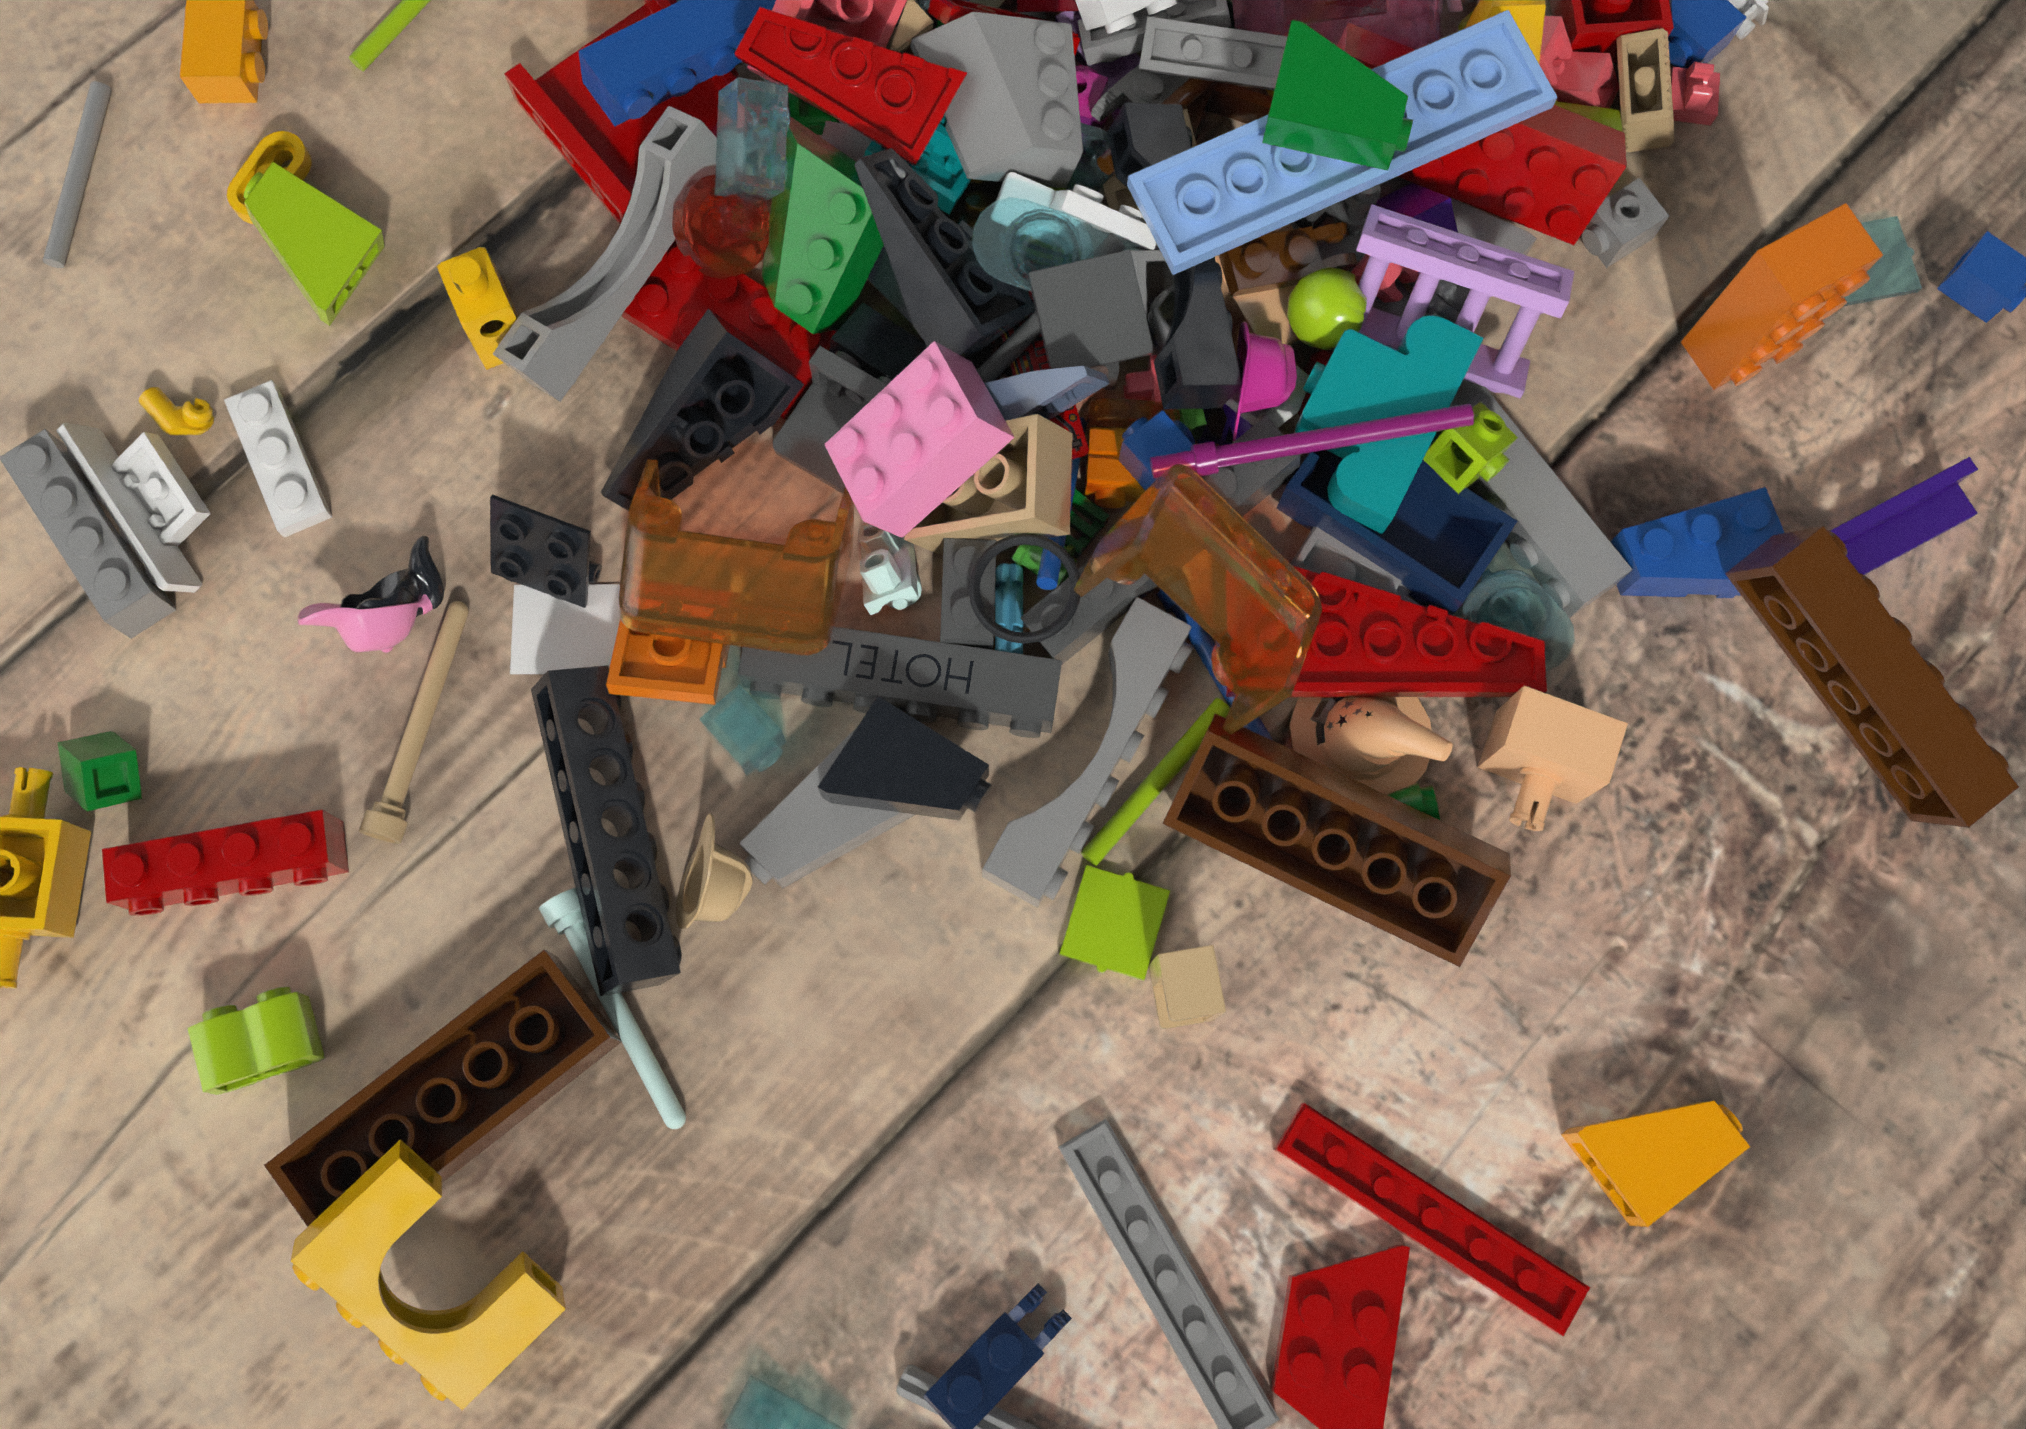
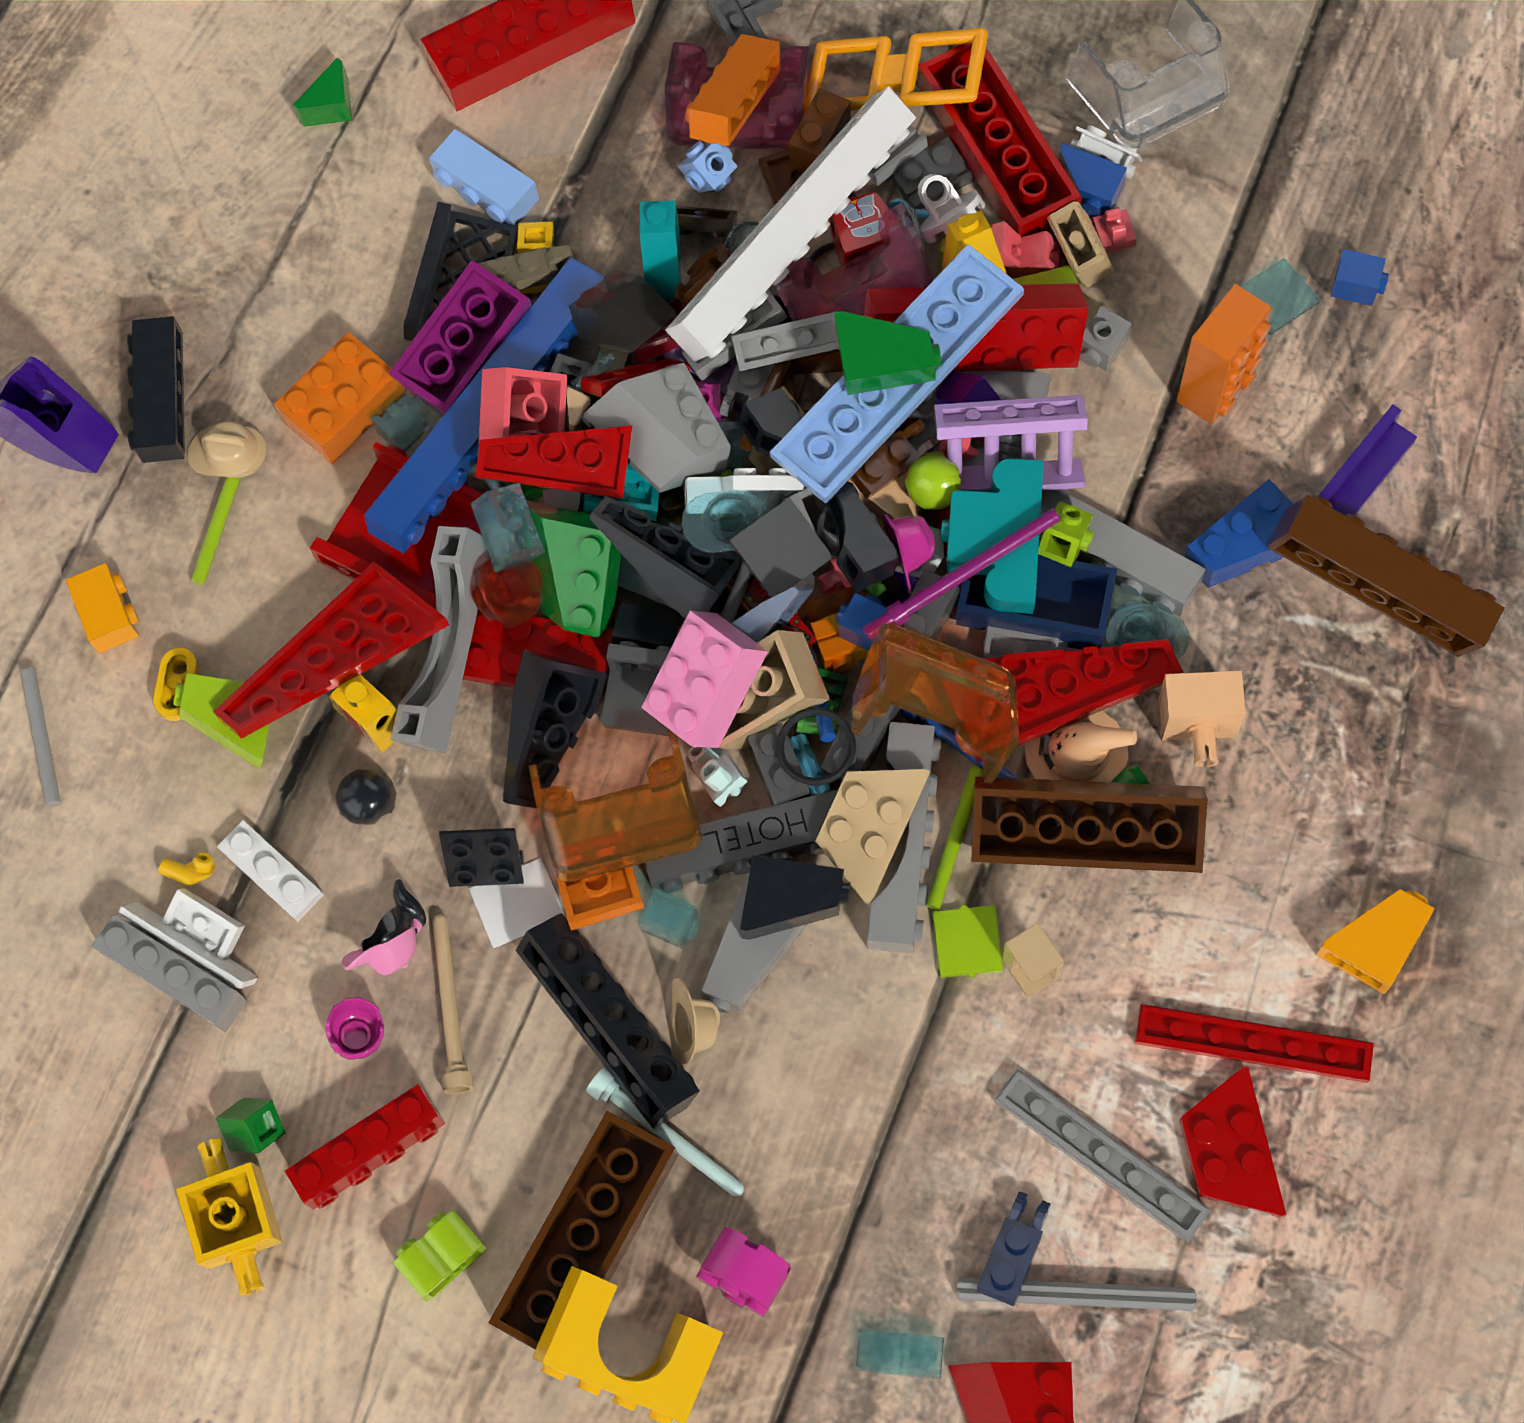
camera: 10 degrees left, 5 degrees down
(283, 702) = (354, 1028): none -> dark pink hair
(437, 414) = (365, 796): none -> black hair
(496, 201) = (351, 635): none -> red wing
(628, 1239) = (744, 1271): none -> dark pink brick
(1050, 717) = (869, 823): none -> tan wing

